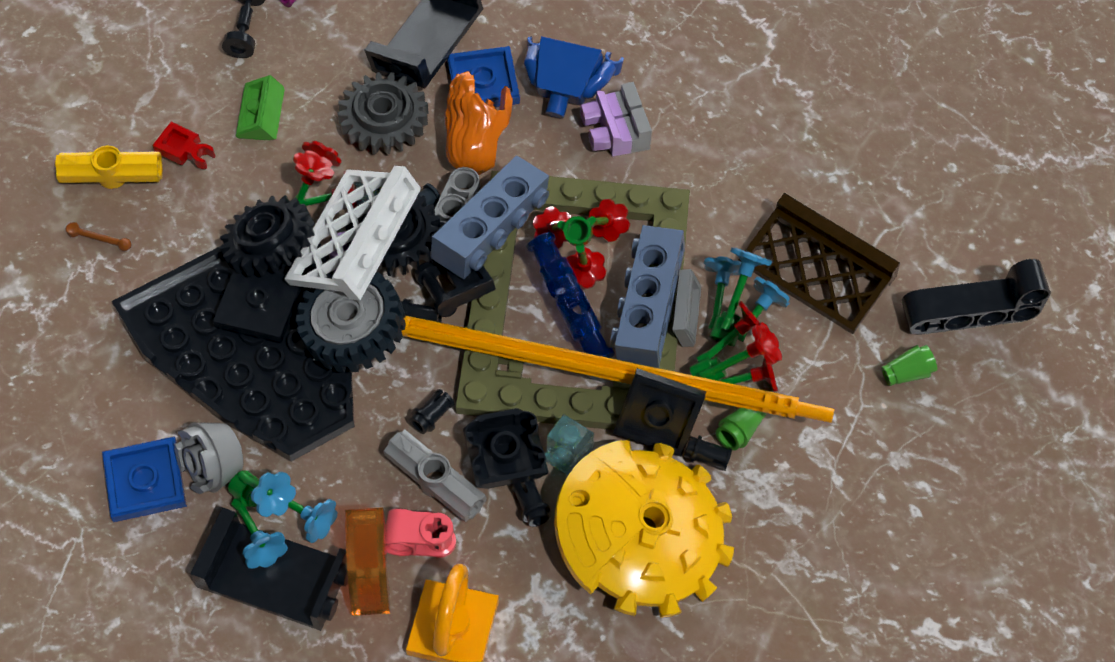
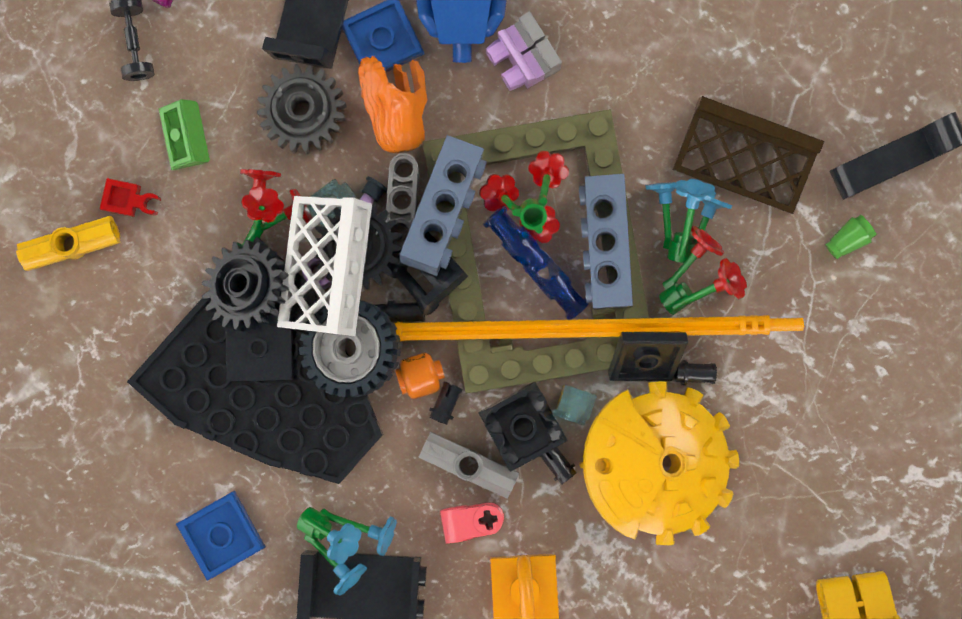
camera: 10 degrees left, 25 degrees up
(74, 230) = (61, 313): dark orange hinge -> none
(209, 454) = (272, 508): light grey cone -> none
(367, 561) = (439, 565): clear orange brick -> none
(413, 374) = (419, 375): none -> orange head
(687, 308) = (641, 237): light grey tile -> none
(738, 426) = (714, 346): bright green cone -> none

